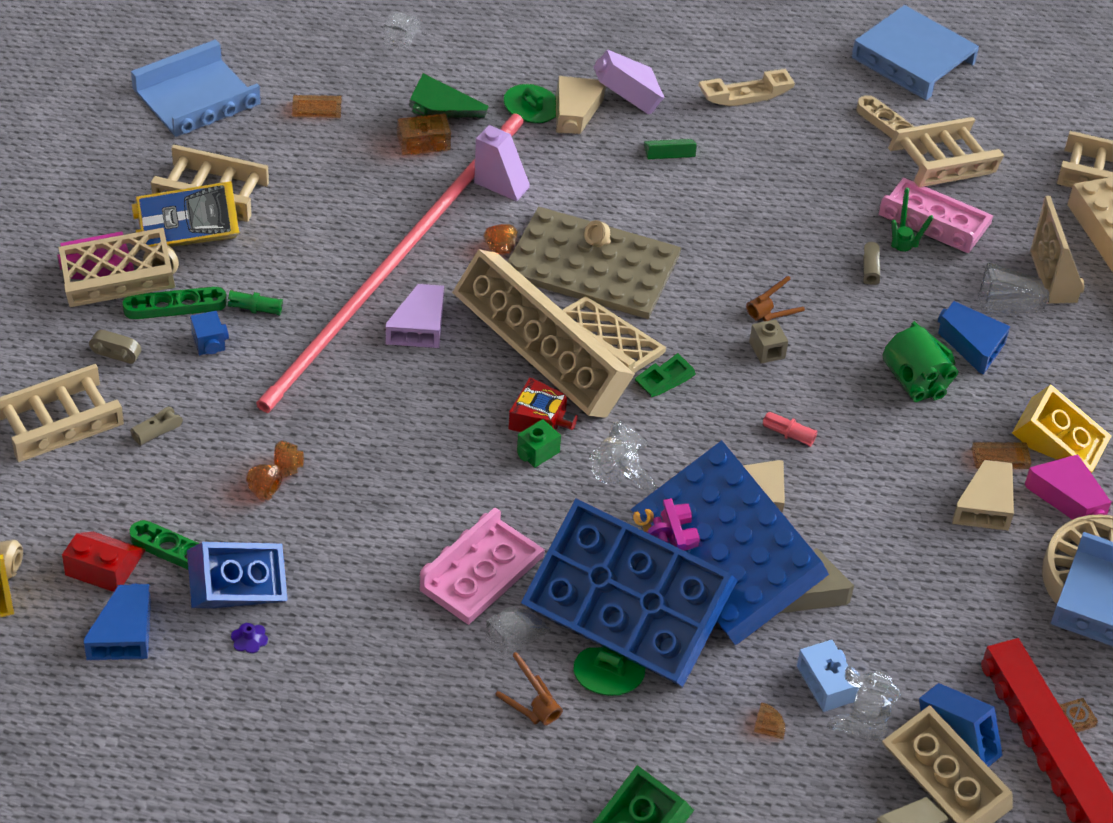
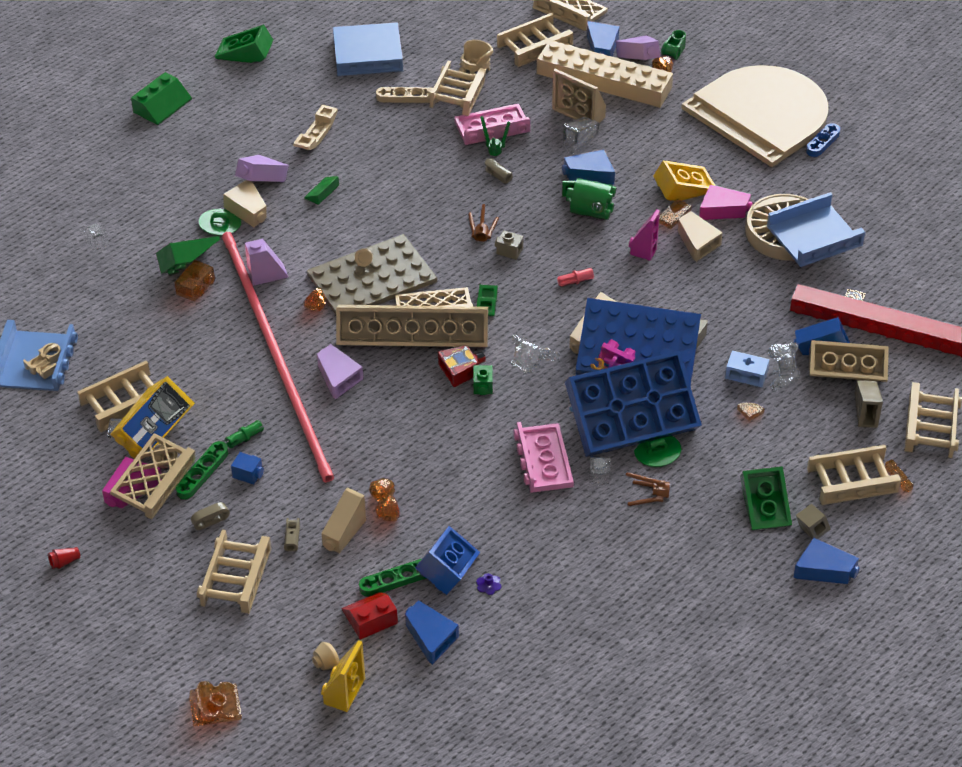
camera: 45 degrees left, 0 degrees up
(190, 99) = (42, 362): none -> tan piece
(204, 454) = (344, 521): none -> tan slope
(316, 106) = (111, 312): clear orange tile -> none
(915, 447) = (646, 239): none -> dark pink slope
(1015, 137) = (476, 56): none -> tan hair

